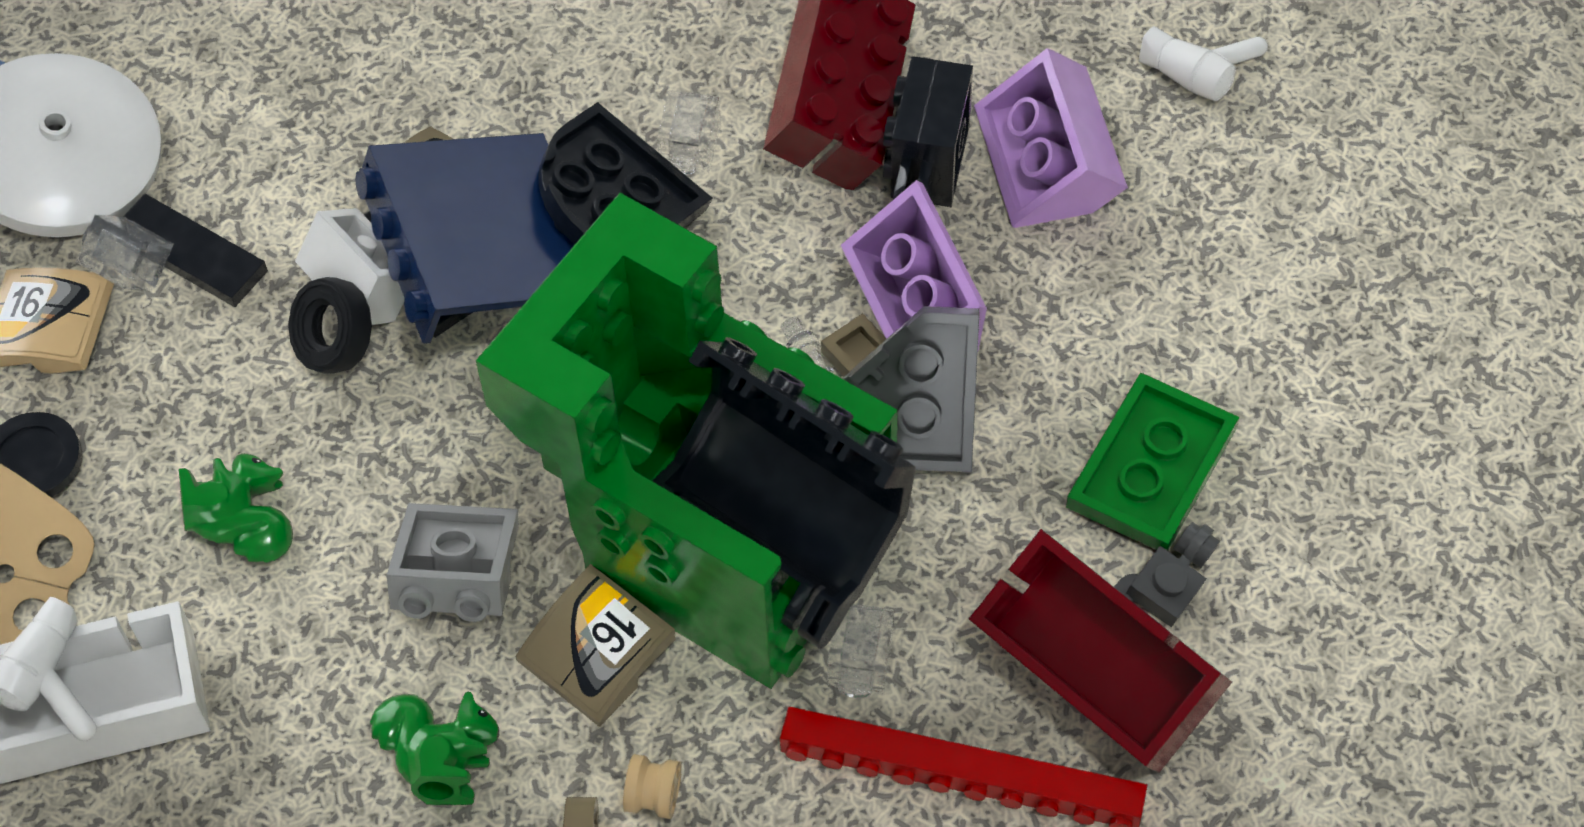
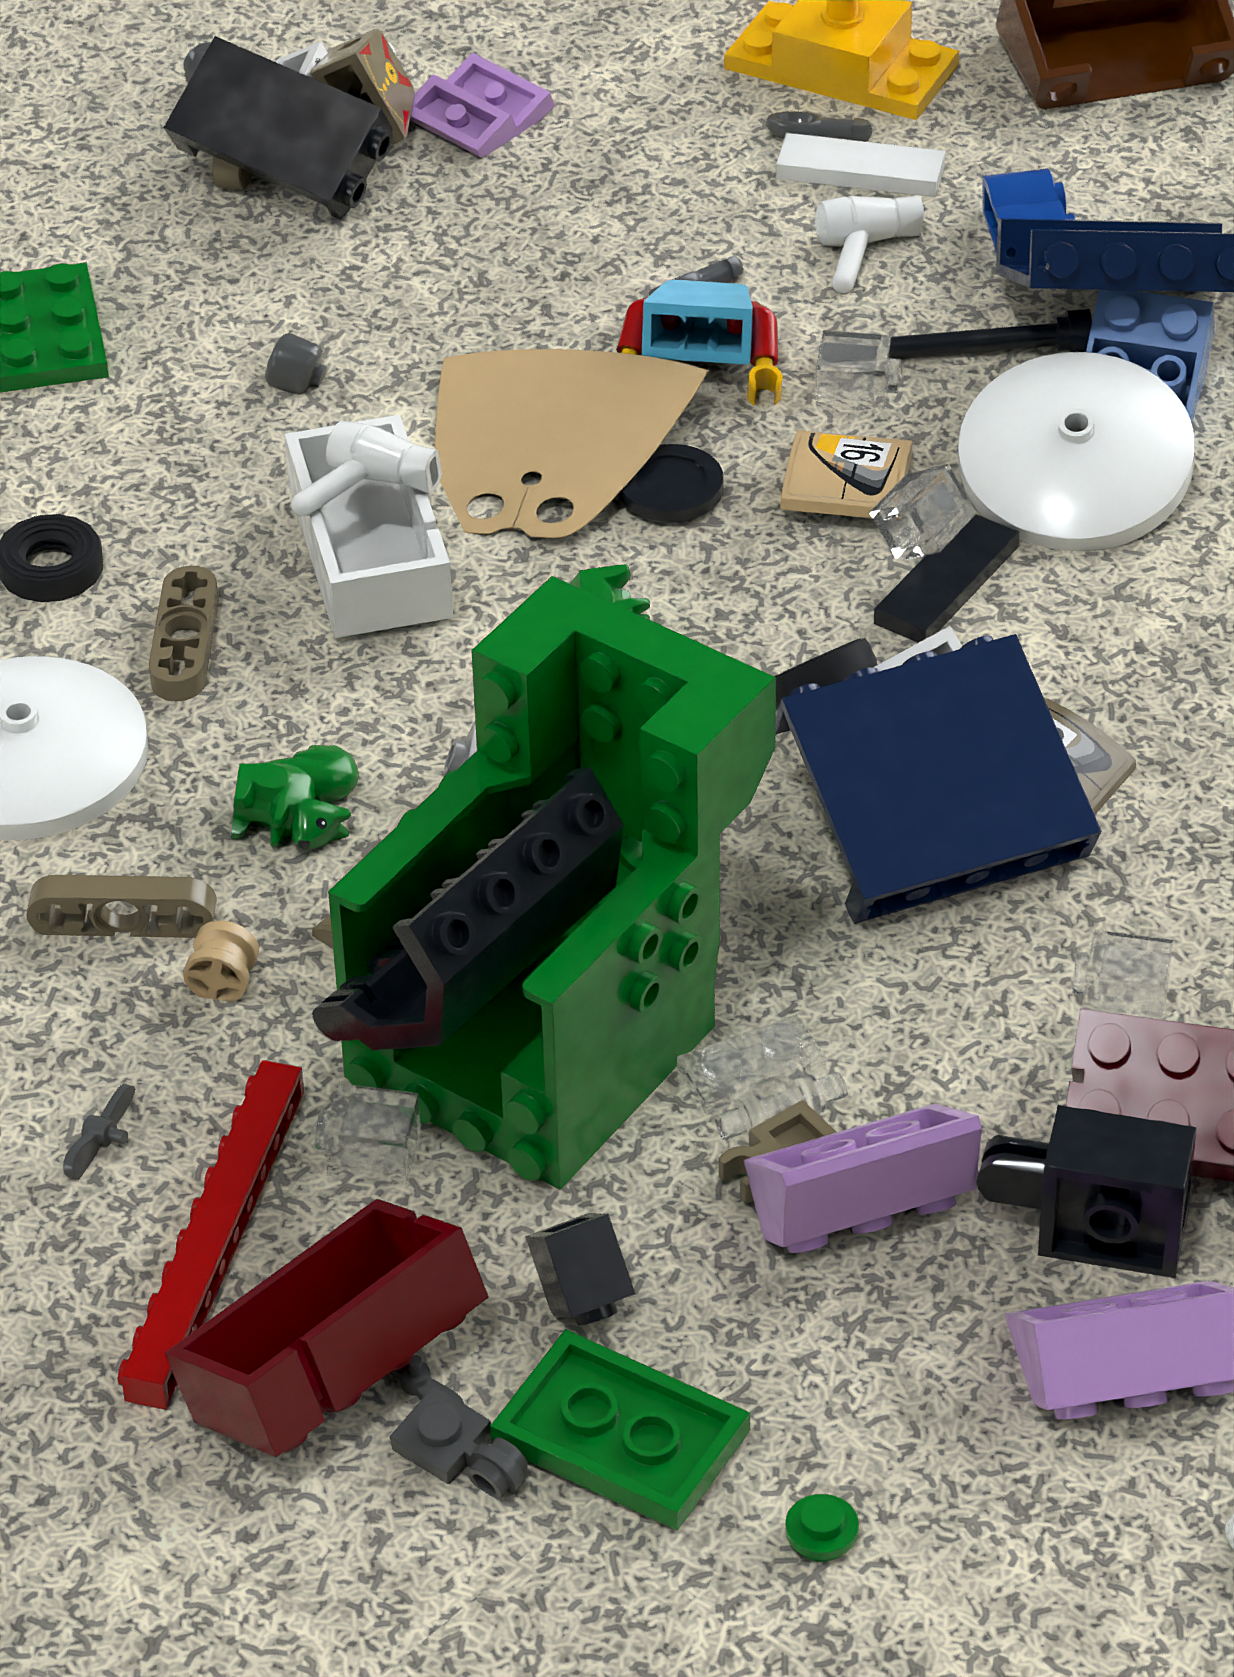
camera: 90 degrees right, 15 degrees down
(598, 159) = (1011, 893): black plate -> none
(931, 380) = (689, 1159): dark grey plate -> none
(1009, 483) = (581, 1268): none -> black brick
(1229, 334) = (822, 1527): none -> green plate

